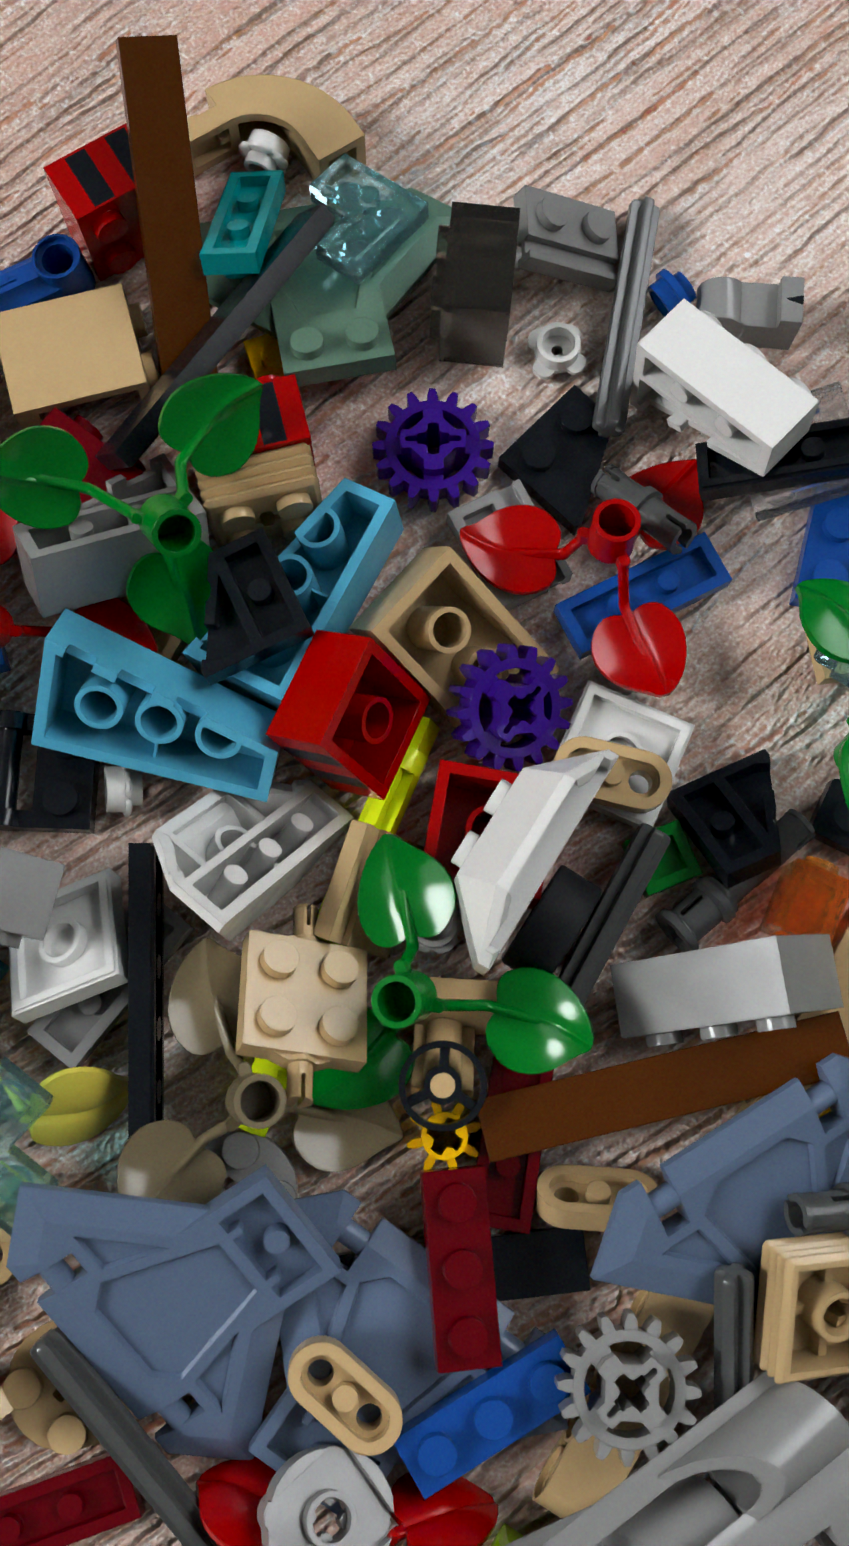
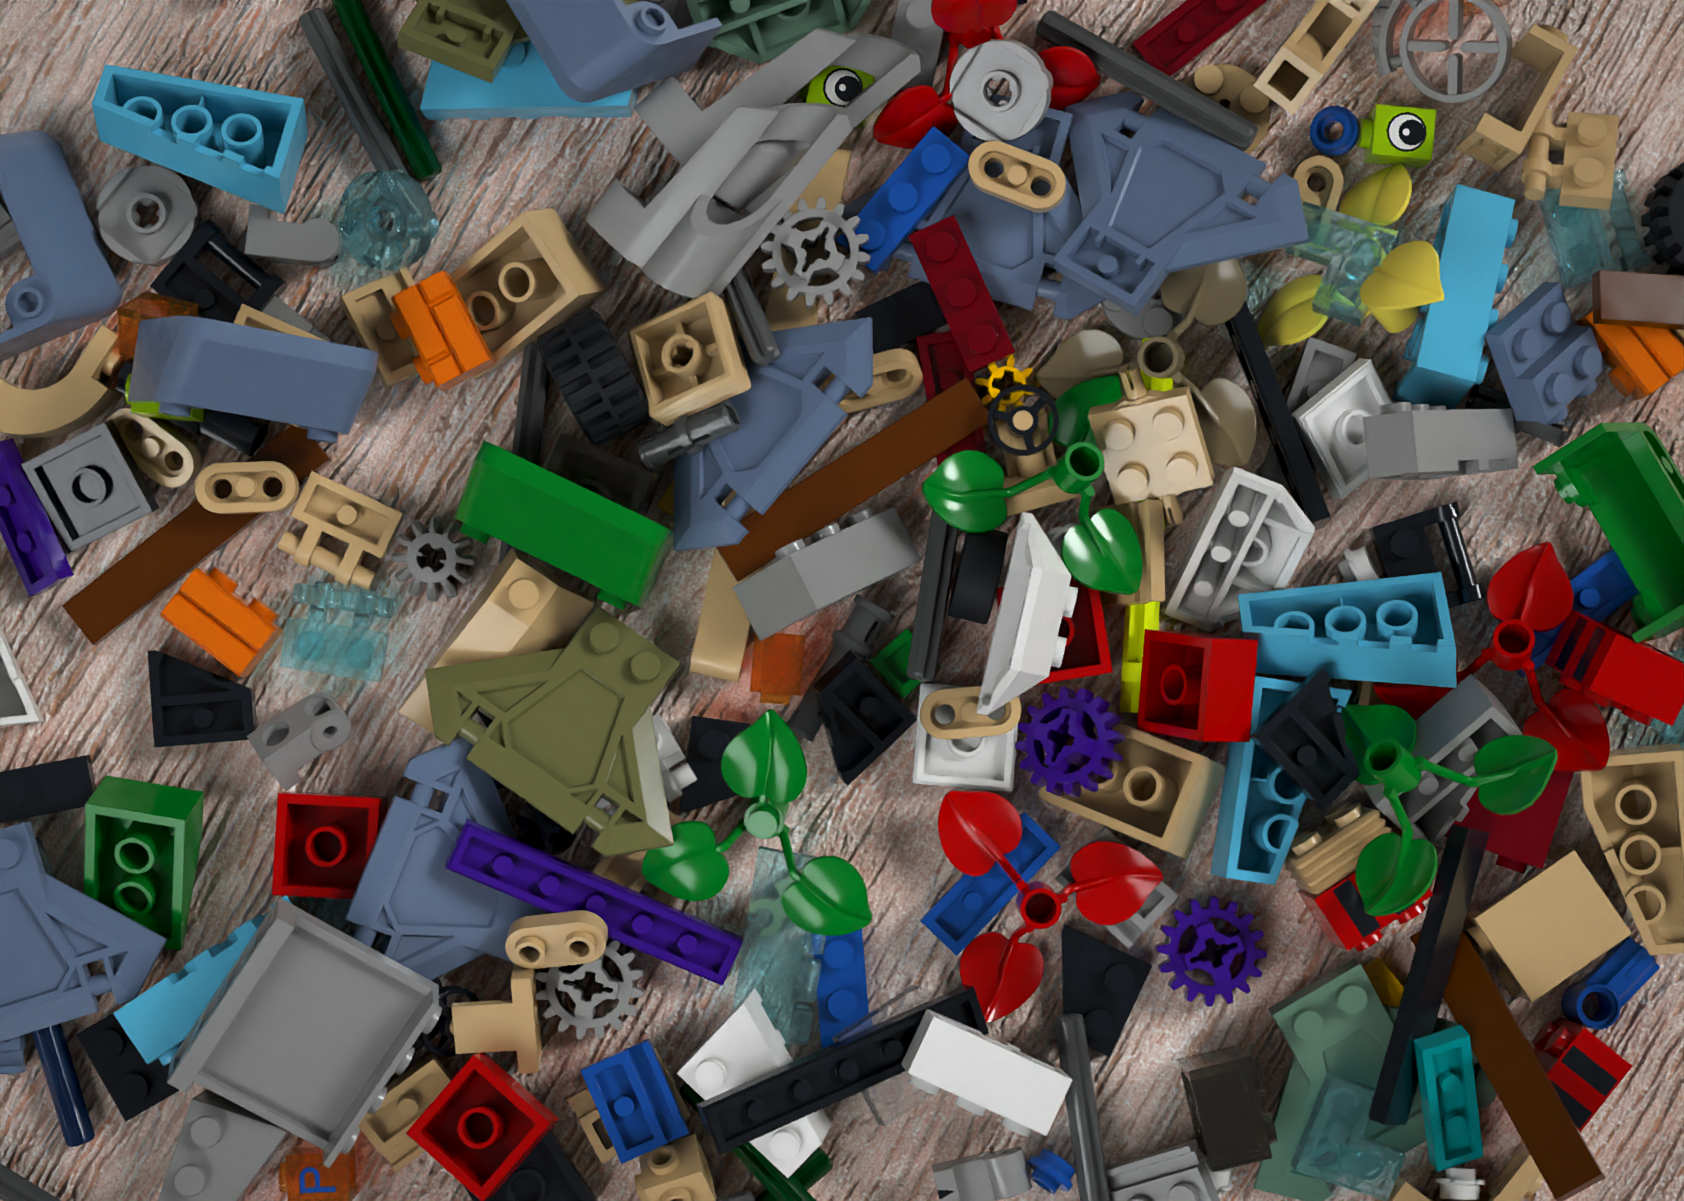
camera: 160 degrees right, 10 degrees up
(559, 336) = (1149, 1089): white plate -> none
(656, 516) = (1015, 954): dark grey pin -> none

